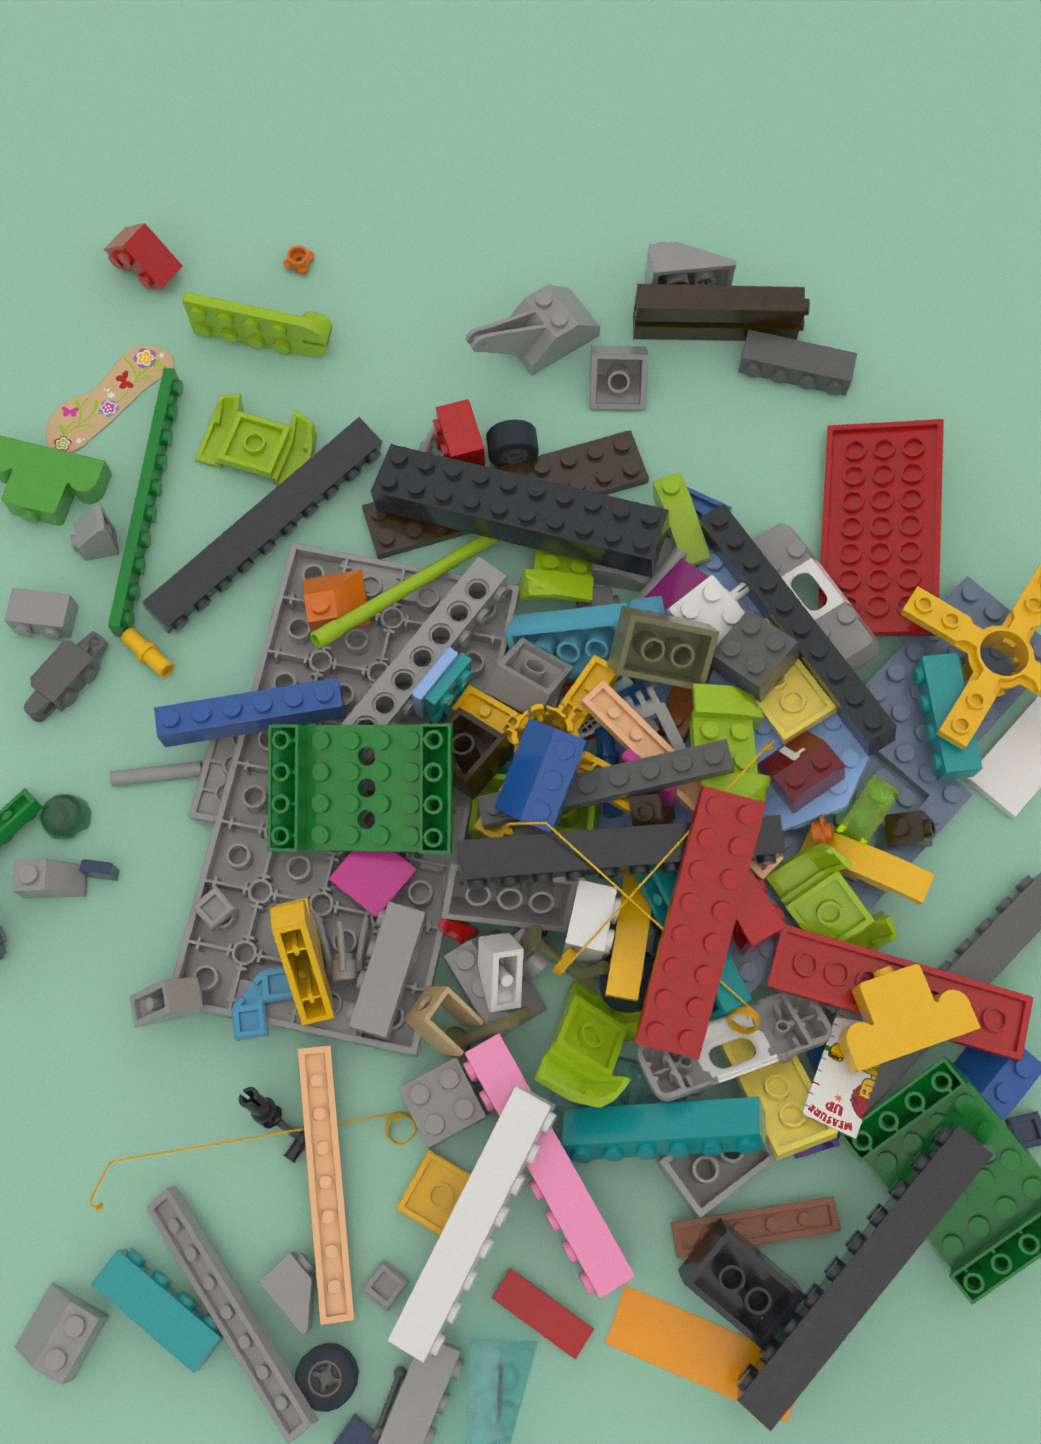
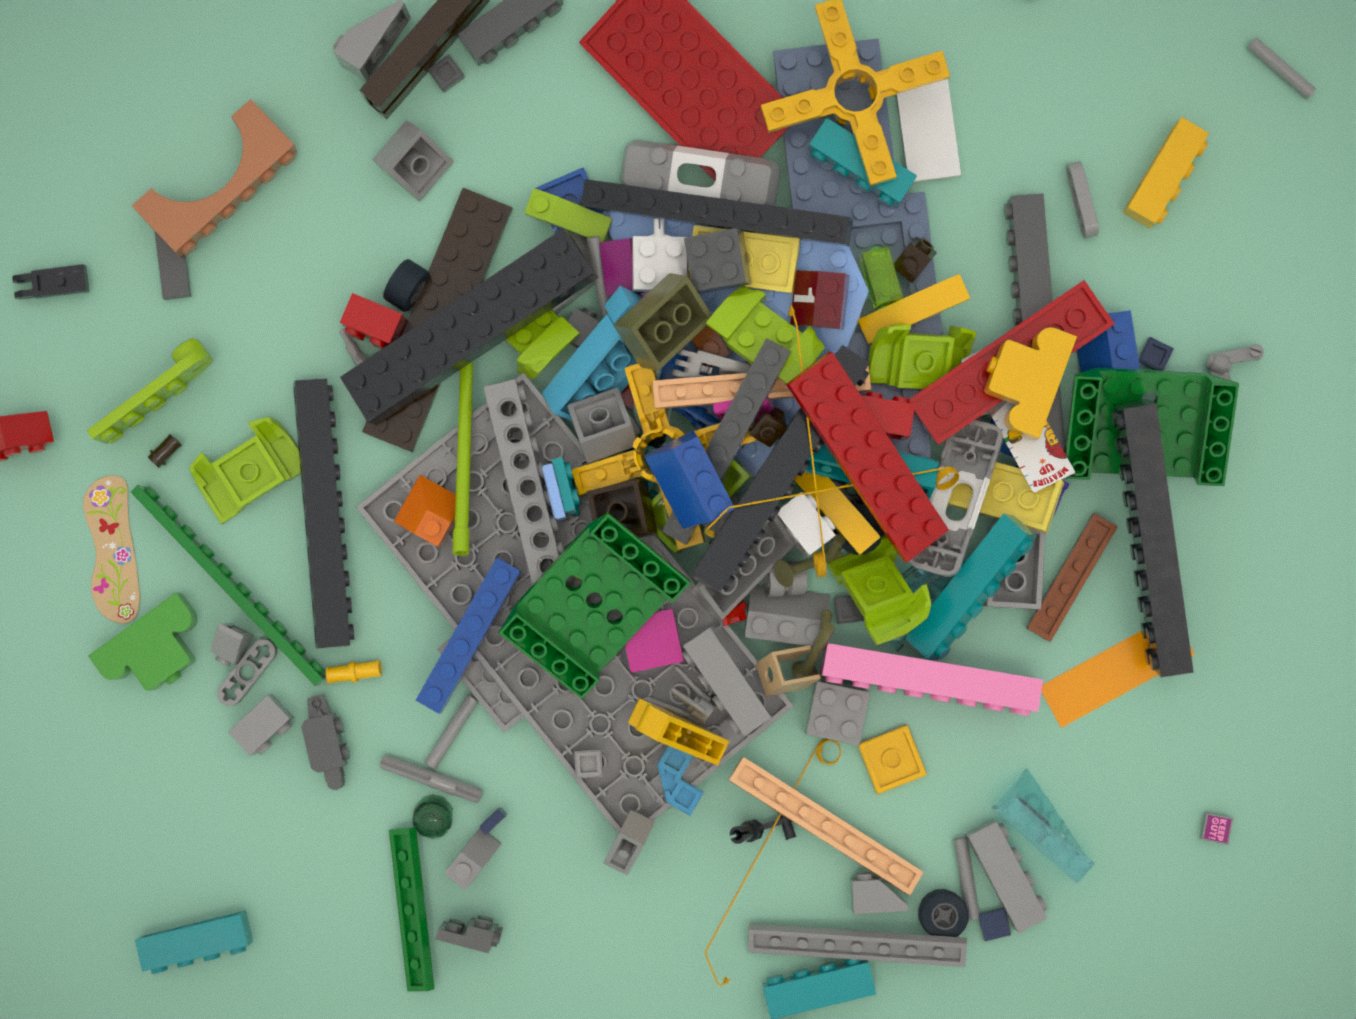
camera: 50 degrees left, 15 degrees up
(69, 563) = (240, 692): none -> light grey beam
(99, 789) = (430, 778): none -> light grey axle
(220, 373) = (164, 451): none -> dark brown pin
(291, 202) = (53, 282): none -> black hinge
(298, 253) = (103, 313): orange plate -> none
(373, 1381) = (966, 877): none -> light grey piece
(383, 269) = (172, 271): none -> dark grey tile
(385, 1285) = (917, 836): light grey tile -> none
(399, 1374) = (976, 868): dark grey hinge -> none
(421, 254) = (187, 222): none -> nougat arch
(471, 1224) = (930, 752): white brick -> none
(501, 971) = (787, 608): white slope -> none
(539, 330) = (328, 185): light grey slope -> none
(543, 1313) = (1013, 752): red tile -> none
(544, 1033) = (847, 610): none -> dark grey tile
(709, 352) = (446, 73): none -> dark grey tile
(741, 1283) = (1097, 616): black brick -> none
(822, 831) = (871, 321): orange plate -> none

